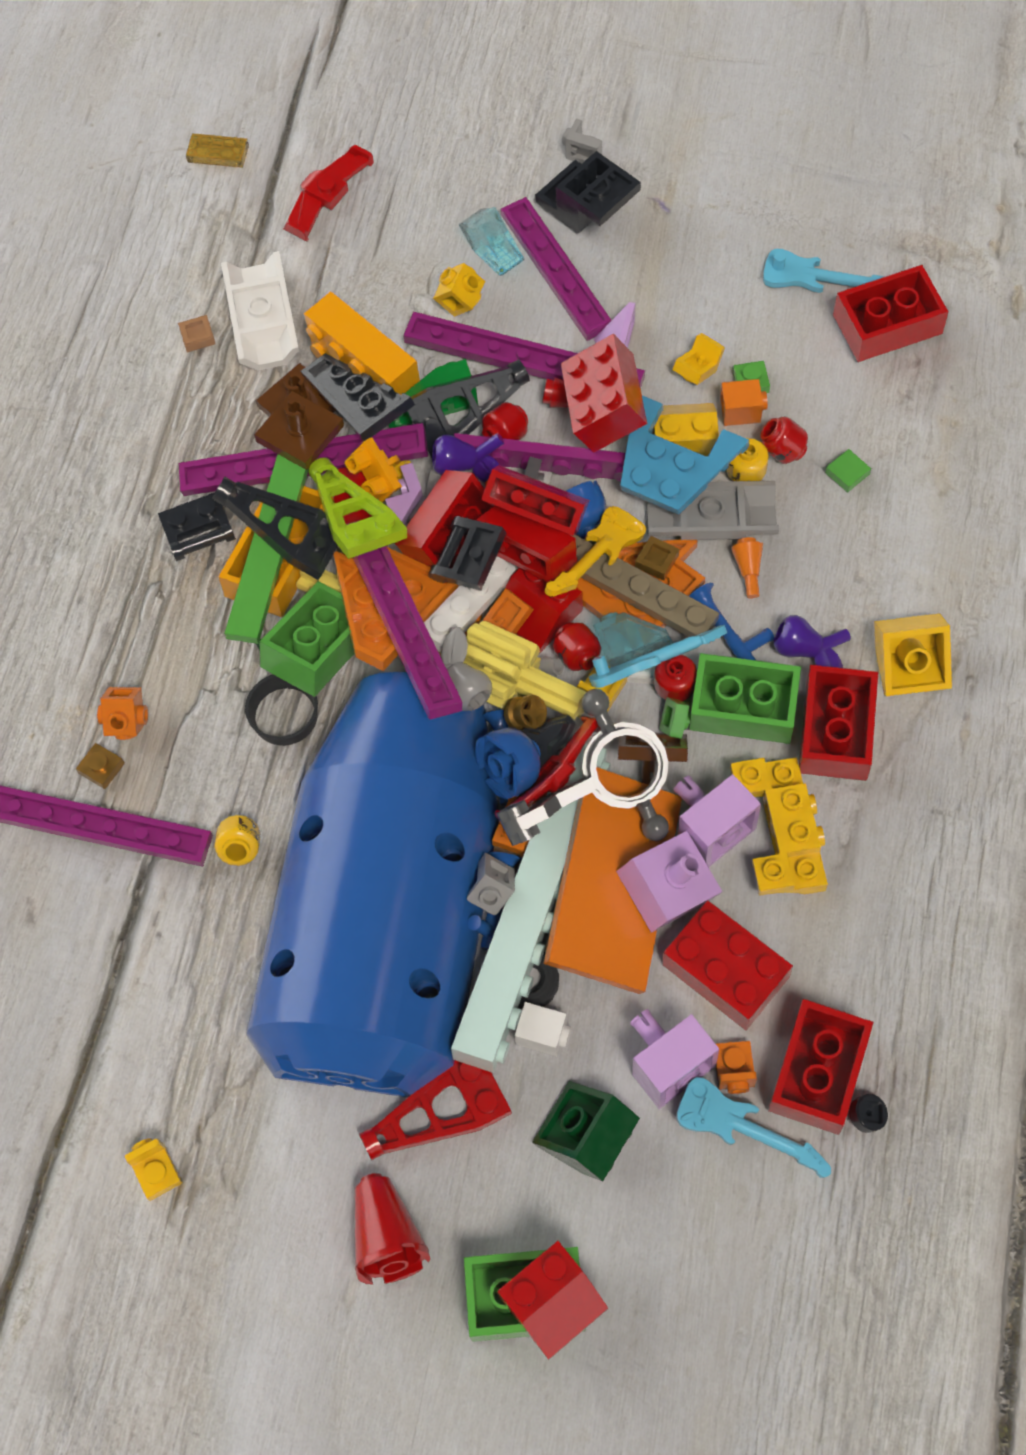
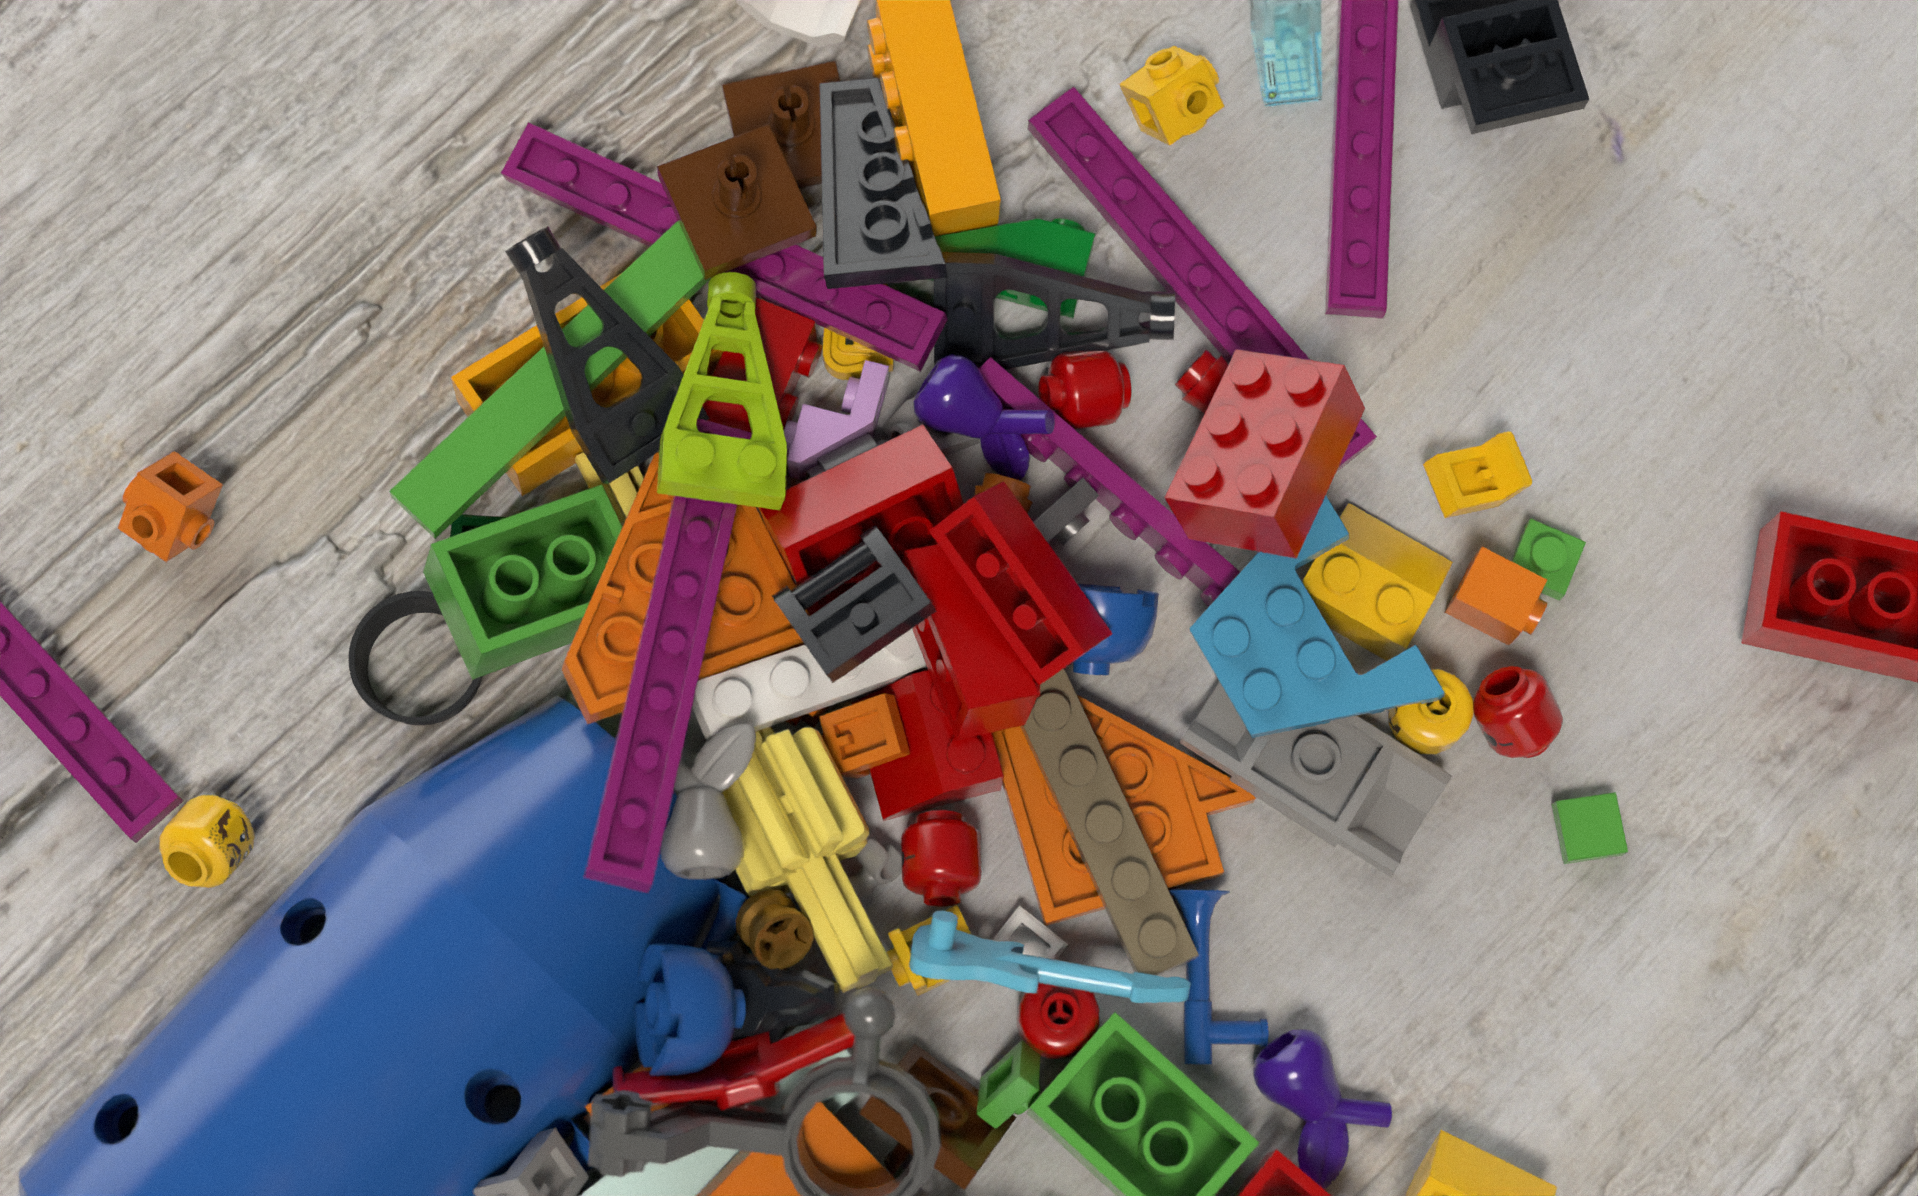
camera: 20 degrees right, 10 degrees up
(100, 766) = (89, 569): pearl gold plate -> none
(192, 520) = (482, 230): black plate -> none
(376, 468) = (821, 349): light orange hips -> none
(614, 533) = (1130, 704): yellow piece -> none
(621, 325) = (1376, 338): lavender slope -> none
(628, 637) = (1023, 901): clear light blue slope -> none
(657, 557) = (1165, 792): pearl gold plate -> none
(748, 558) = (1317, 883): orange cone -> none
(788, 269) = (1744, 399): medium azure piece -> none

